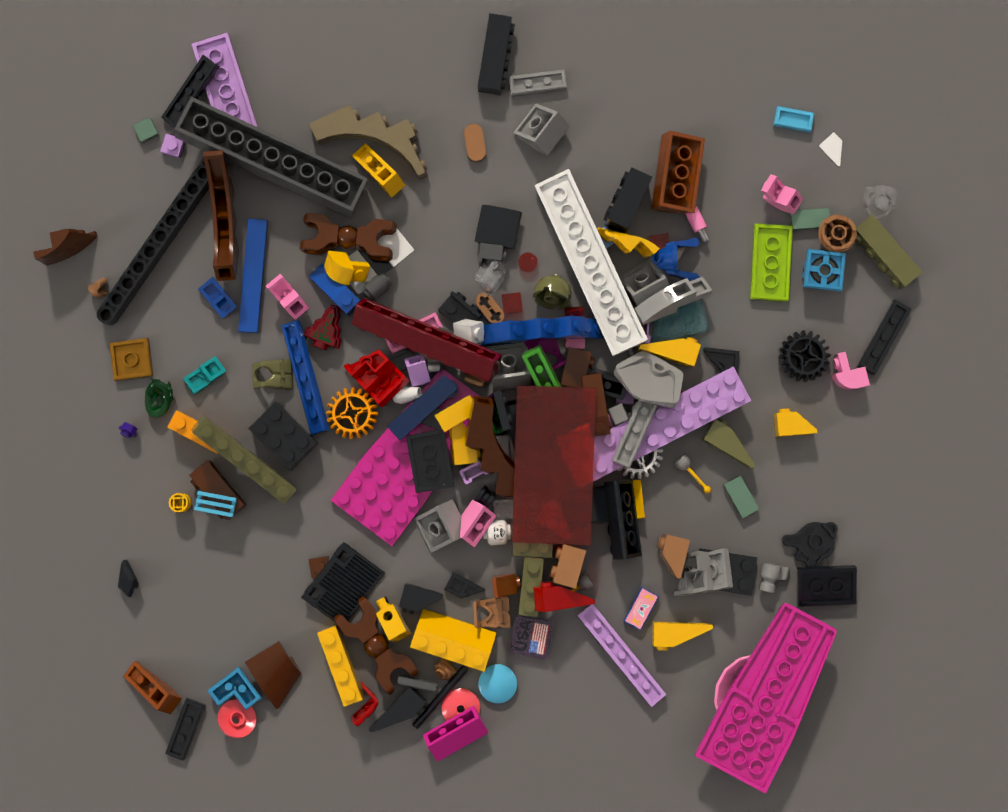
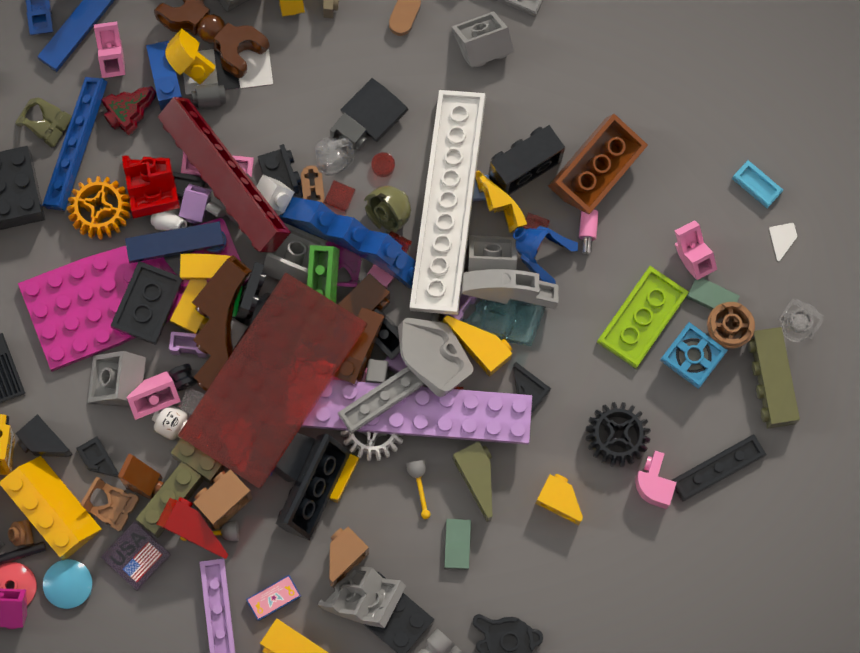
camera: 25 degrees right, 10 degrees down
(473, 380) = (249, 252): medium nougat slope -> none

